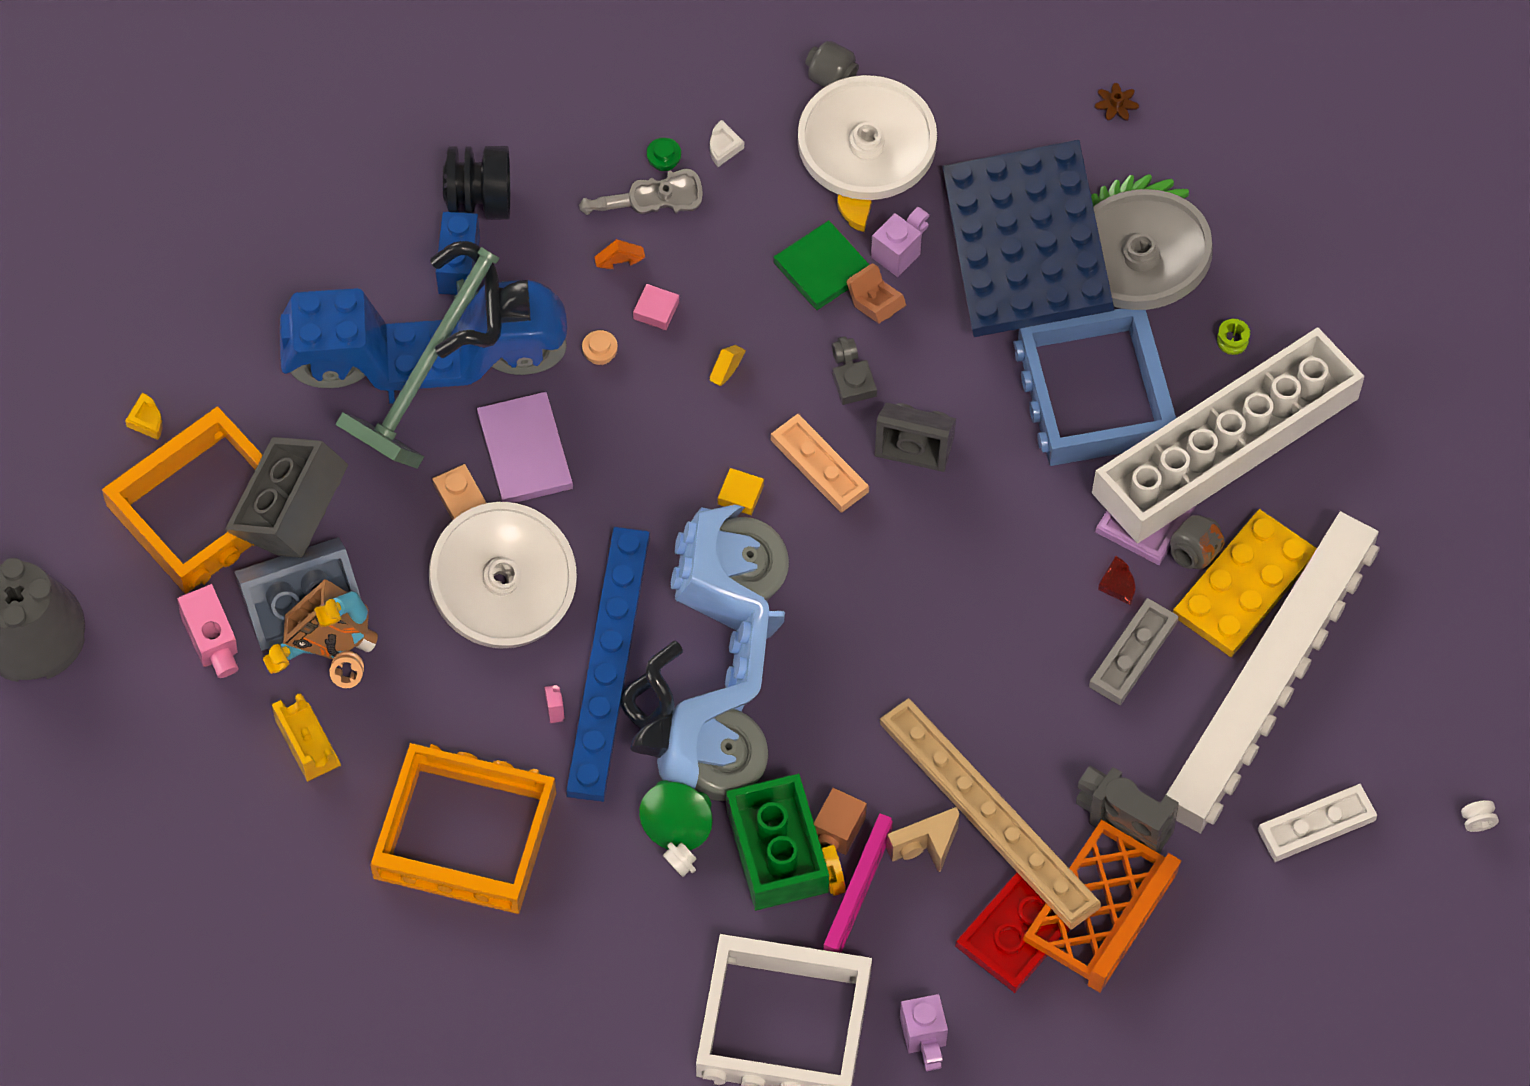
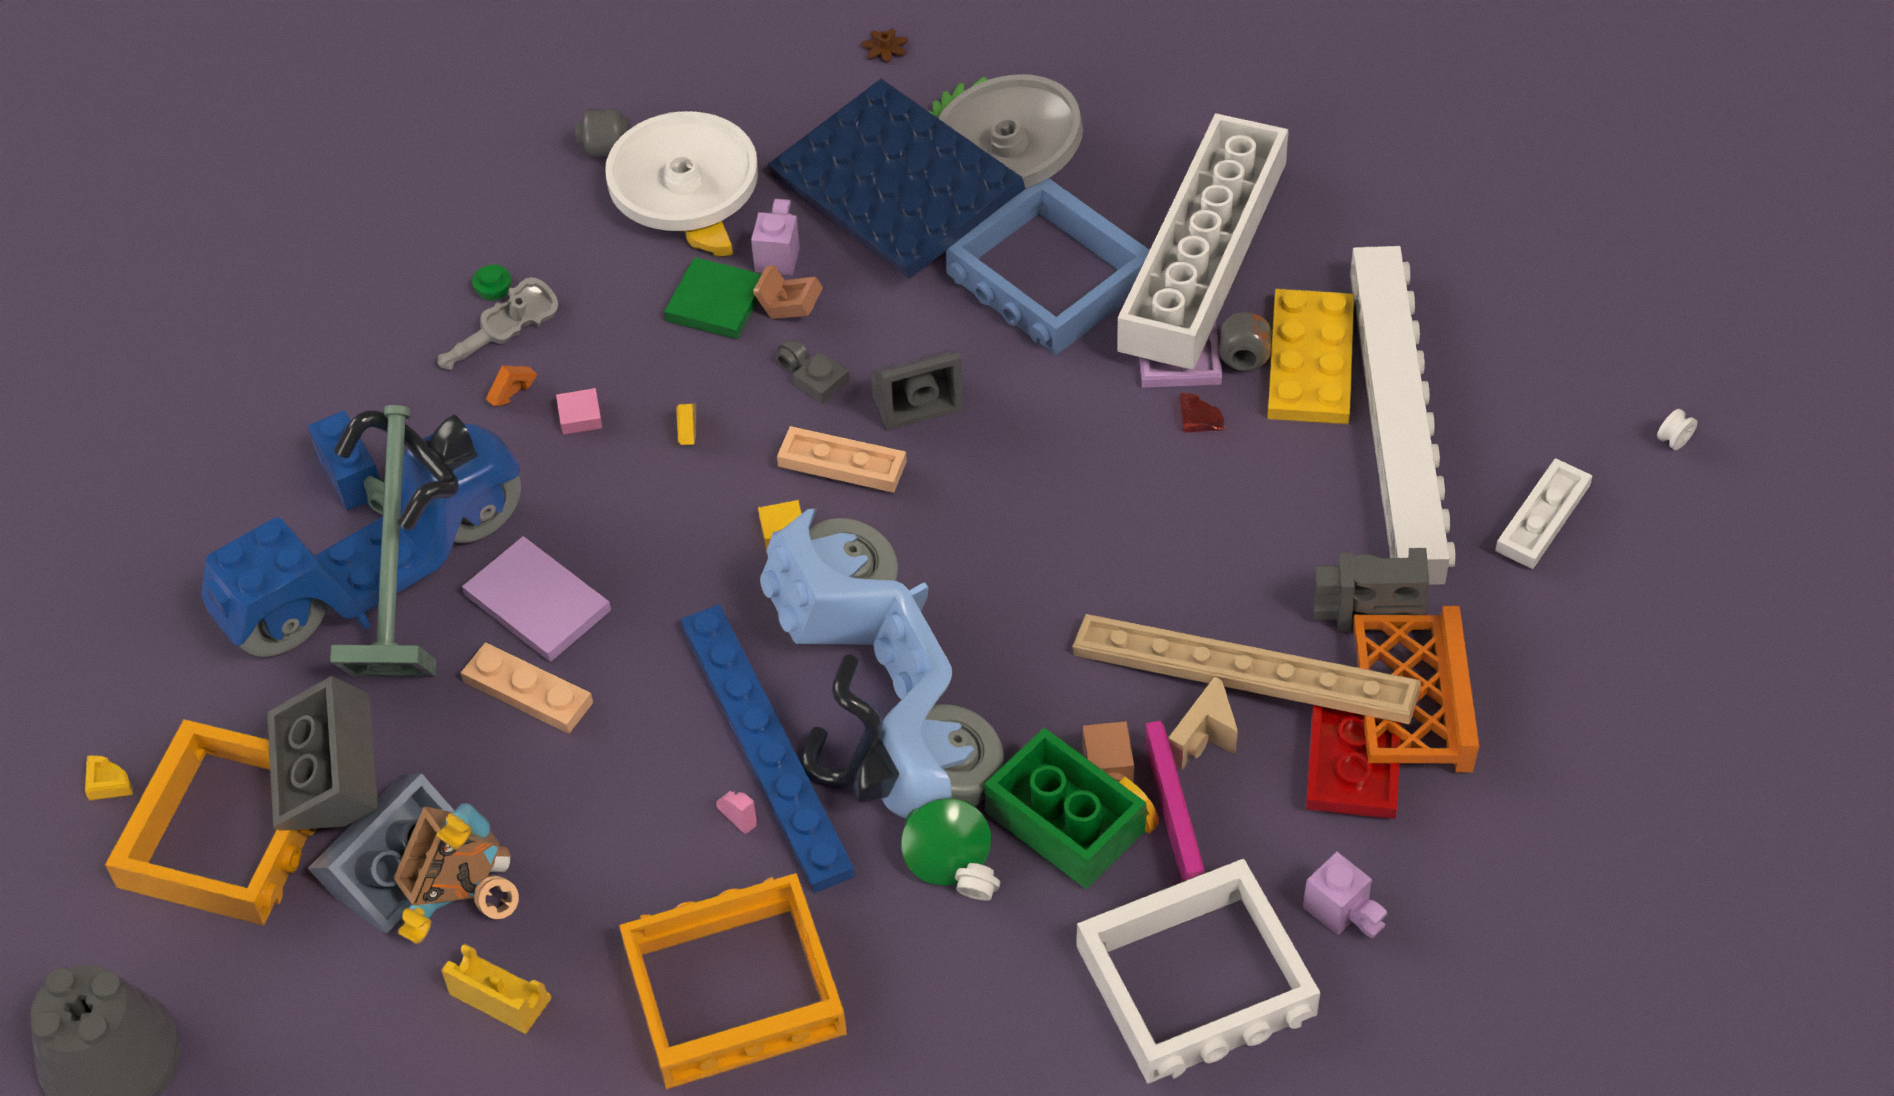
camera: 30 degrees left, 10 degrees down
(207, 621) = (318, 937): bright pink torso -> none
(478, 181) = (332, 382): black wheel -> none
(508, 542) = (601, 717): white dish -> none
(599, 347) = (548, 472): light nougat plate -> none
(724, 143) = (544, 246): white tile -> none
(1133, 651) = (1261, 462): light grey plate -> none
(1230, 346) = (1140, 178): lime bush -> none

